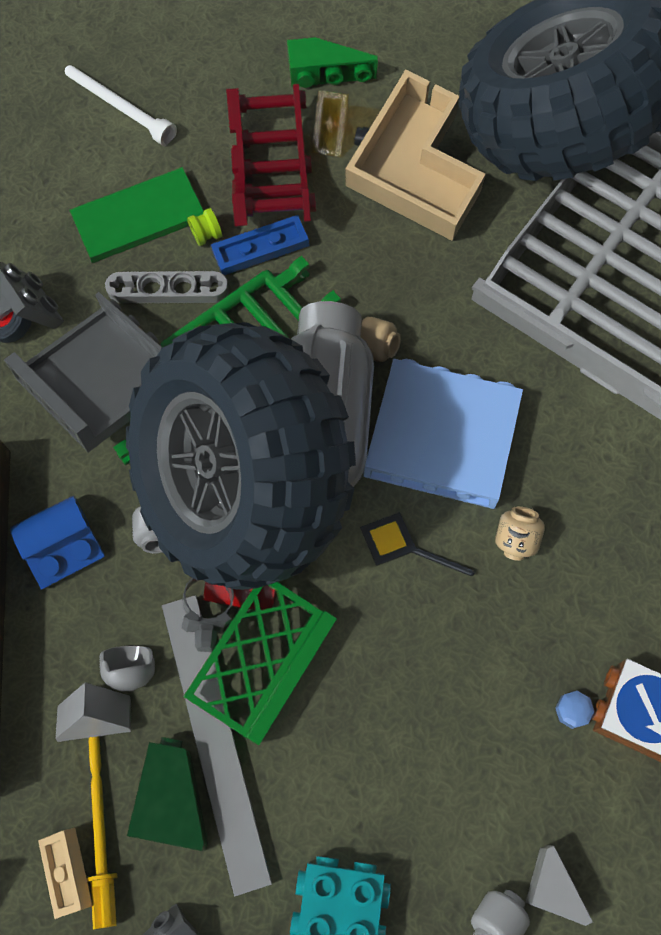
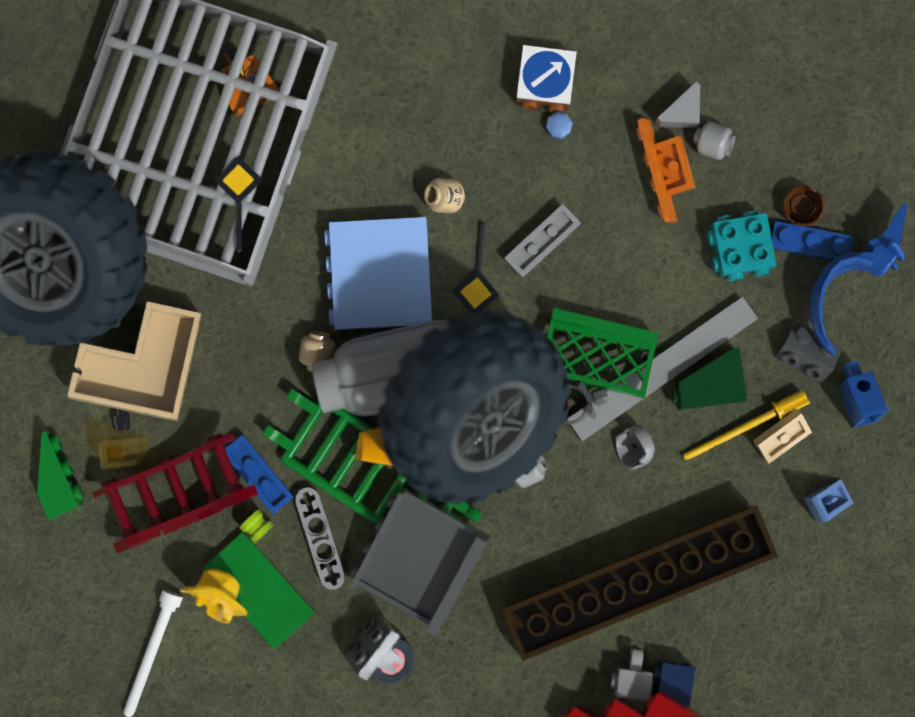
camera: 105 degrees left, 15 degrees up
(56, 542) = (560, 538): blue brick -> none
(93, 713) = (675, 460): light grey slope -> none
(148, 162) = (219, 594): none -> yellow hat
(428, 638) = (542, 241): none -> light grey plate
(480, 837) = (668, 168): none -> orange bracket
(598, 295) = (238, 182): none -> piece

